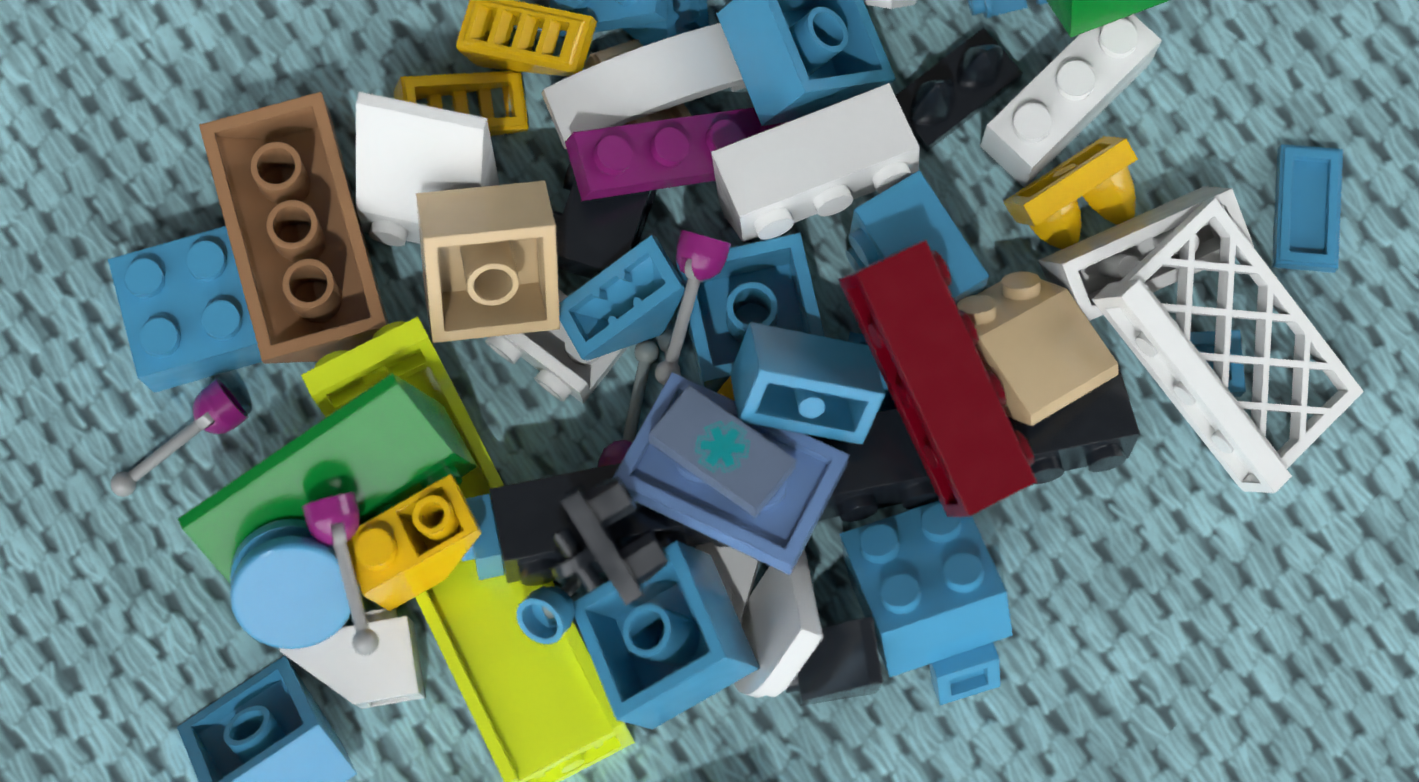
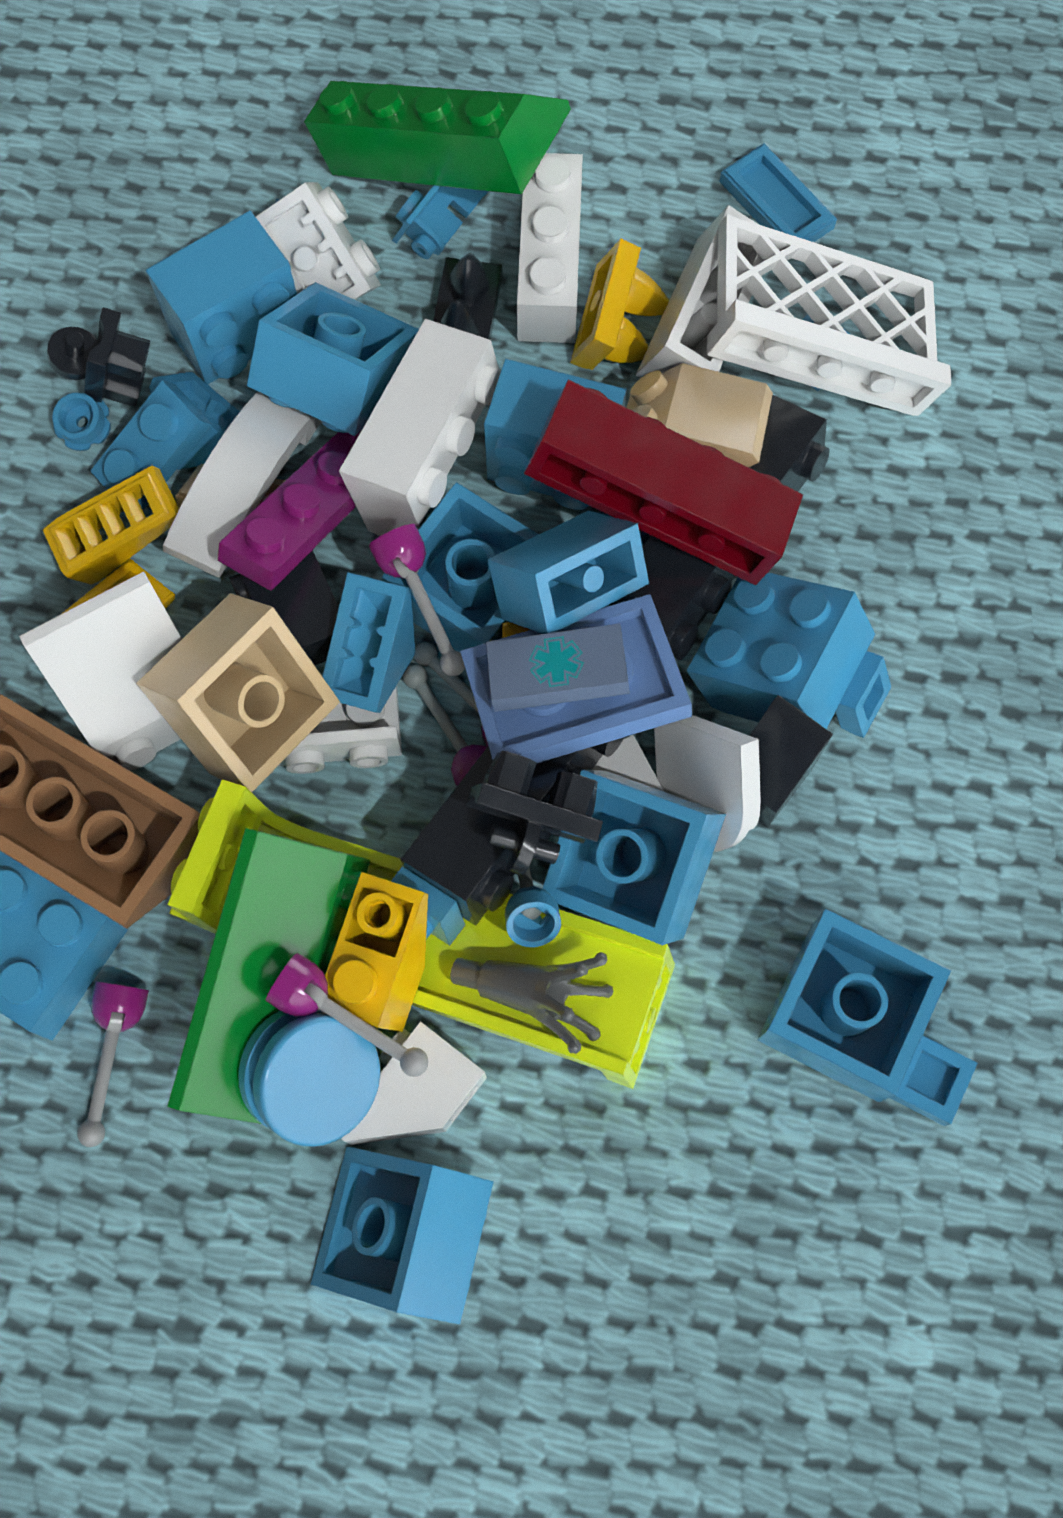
camera: 45 degrees left, 5 degrees down
(501, 669) = (536, 990): none -> dark grey piece

